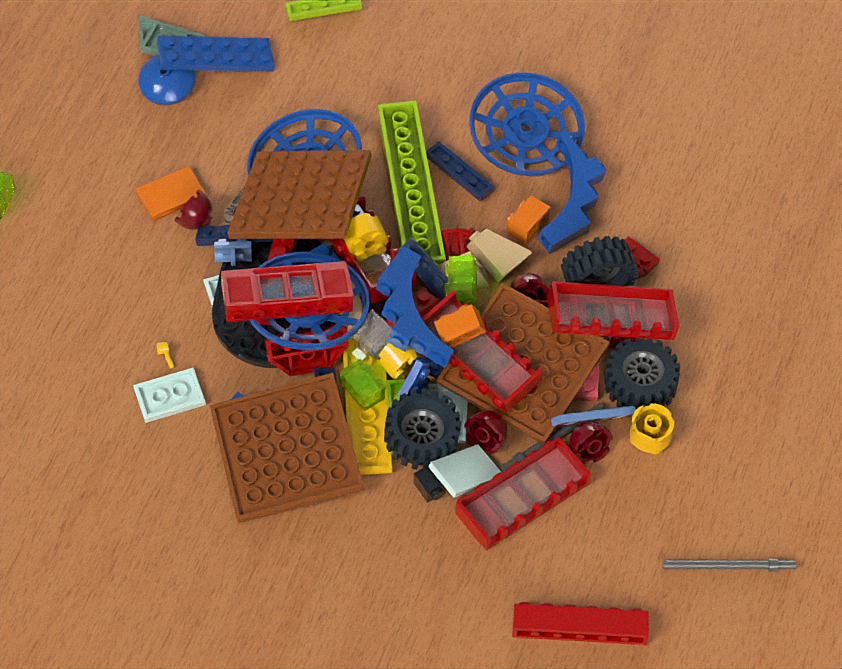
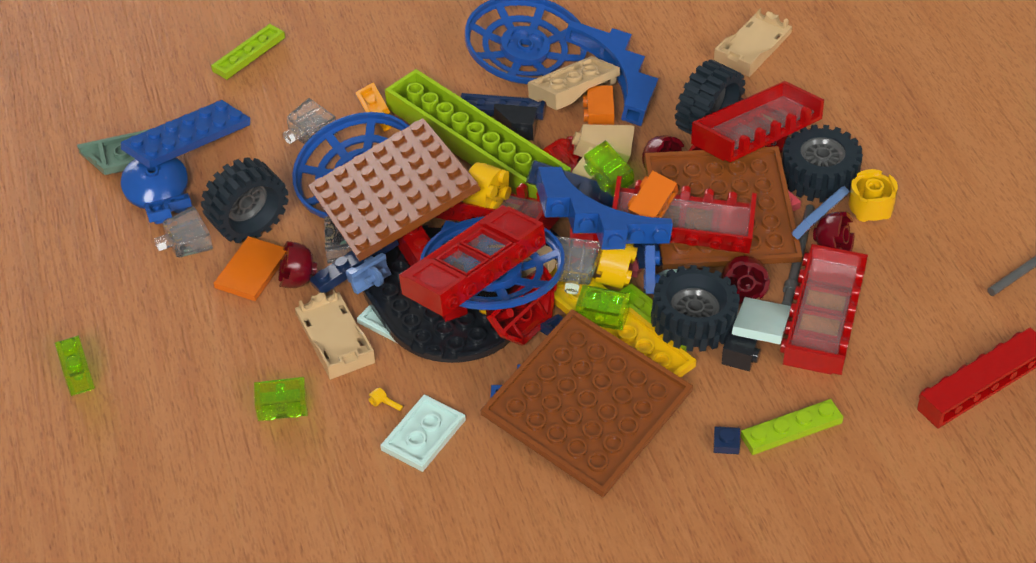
camera: 35 degrees left, 10 degrees down
(100, 308) = (280, 399): none -> clear neon green brick
(147, 105) = (161, 210): none -> blue plate
(149, 137) = (185, 234): none -> clear torso
(178, 282) = (335, 334): none -> tan piece
(197, 138) = (244, 199): none -> black wheel
(307, 95) = (306, 121): none -> clear torso
(357, 541) = (726, 440): none -> dark blue plate
(368, 111) = (373, 101): none -> light orange plate
(411, 563) = (791, 426): none -> lime plate
(458, 192) = (518, 119): none -> black slope
(515, 183) = (570, 82): none -> tan piece
(705, 237) = (753, 43): none -> tan piece

